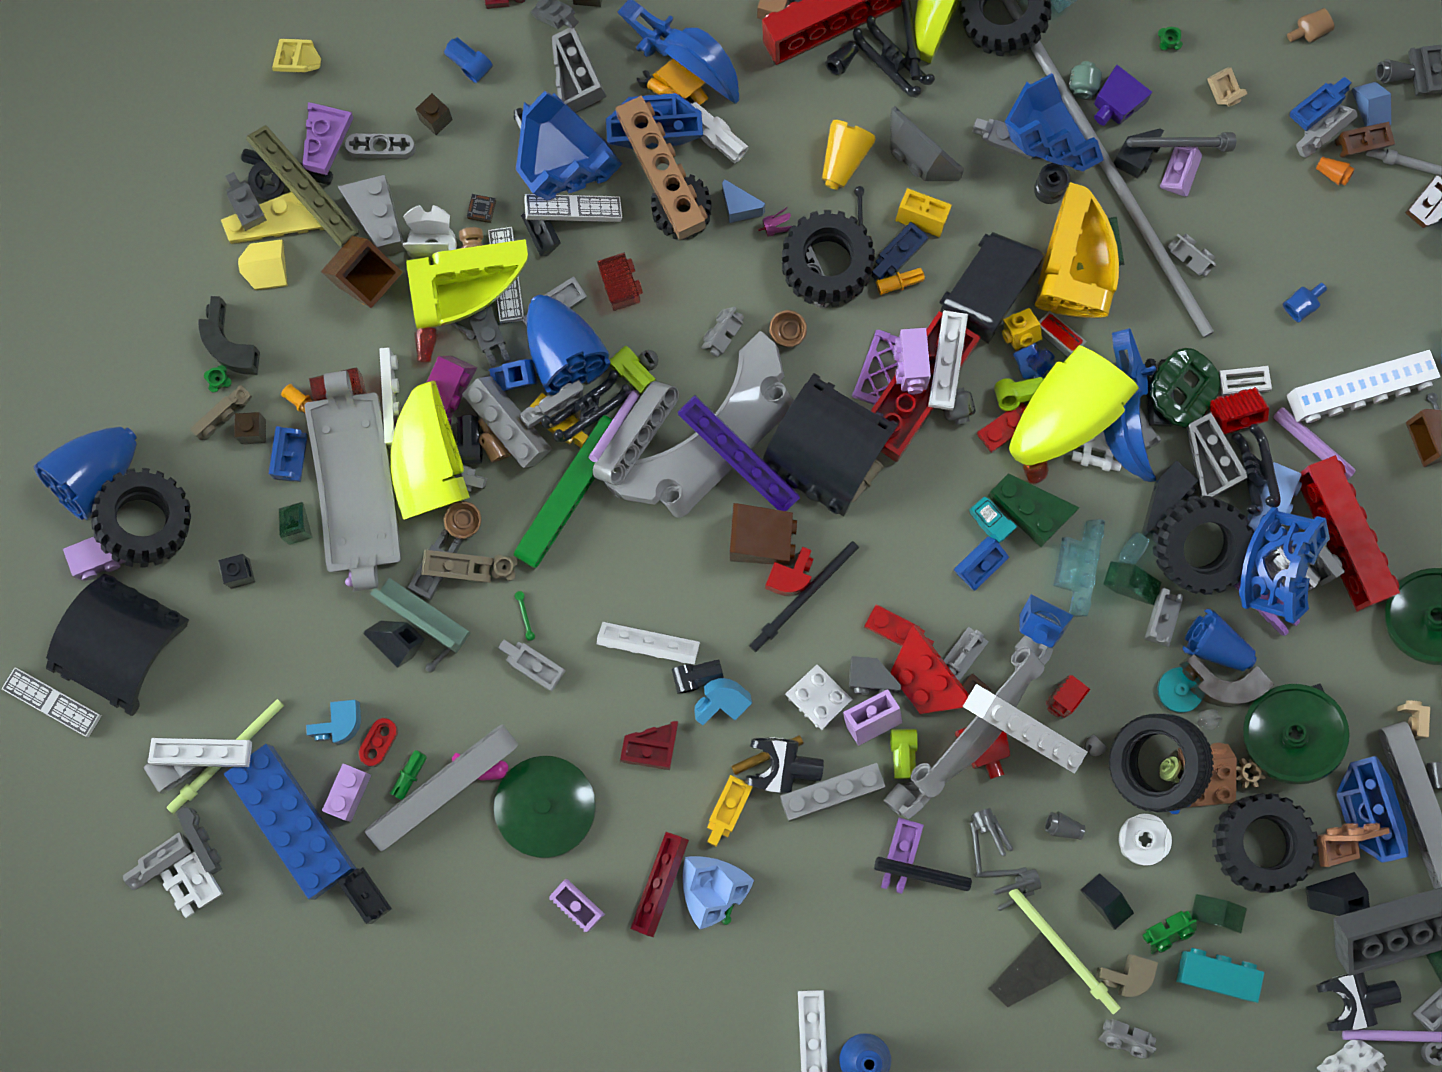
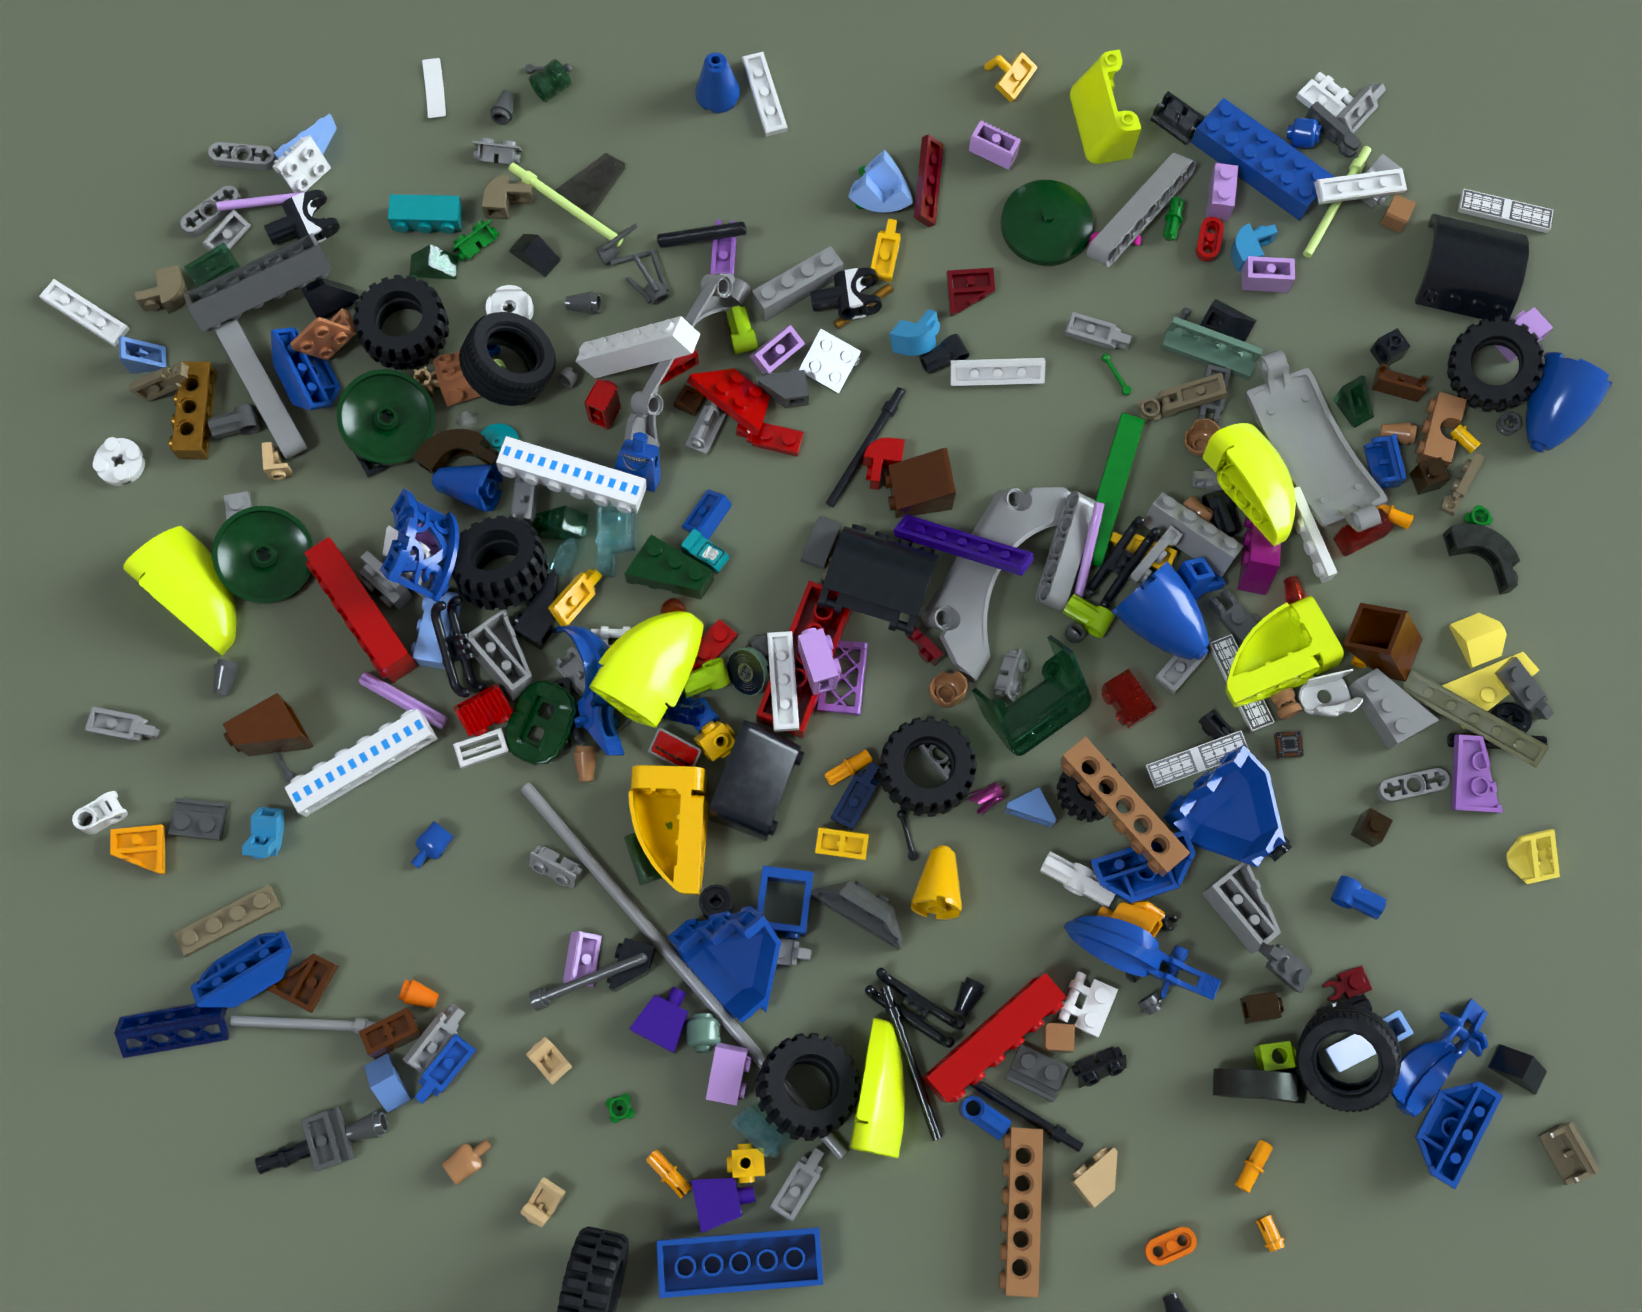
camera: 160 degrees right, 5 degrees down
(143, 461) = (1504, 429): none -> dark grey bush
(168, 721) = (1398, 213): none -> medium nougat piece
(200, 466) = (1466, 439): none -> yellow pin
(212, 491) = (1442, 411): none -> medium nougat arch
(232, 843) = (1304, 133): none -> blue head
(240, 535) = (1399, 384): none -> reddish brown hinge
(260, 481) = (1404, 431): none -> medium nougat cone
(333, 680) = (1268, 274): none -> lavender brick
(453, 918) = (1102, 129): none -> neon yellow windscreen
(526, 995) = (1015, 74): none -> yellow plate
(683, 16) = (1150, 1004): none -> dark grey plate
(708, 292) = (1043, 708): none -> clear green windscreen
(732, 25) = (1094, 1008): none -> white plate
(796, 370) = (927, 649): none -> dark red plate
(874, 504) = (821, 542): none -> dark grey slope
(976, 387) = (748, 671): none -> black tile
(980, 194) = (787, 876): none -> blue window
(1071, 40) = (727, 1074): none -> lavender brick
(1116, 619) = (571, 475): none -> white brick
(1130, 501) = (575, 597): none -> yellow hinge
(1148, 341) = (585, 762): none -> medium nougat cone

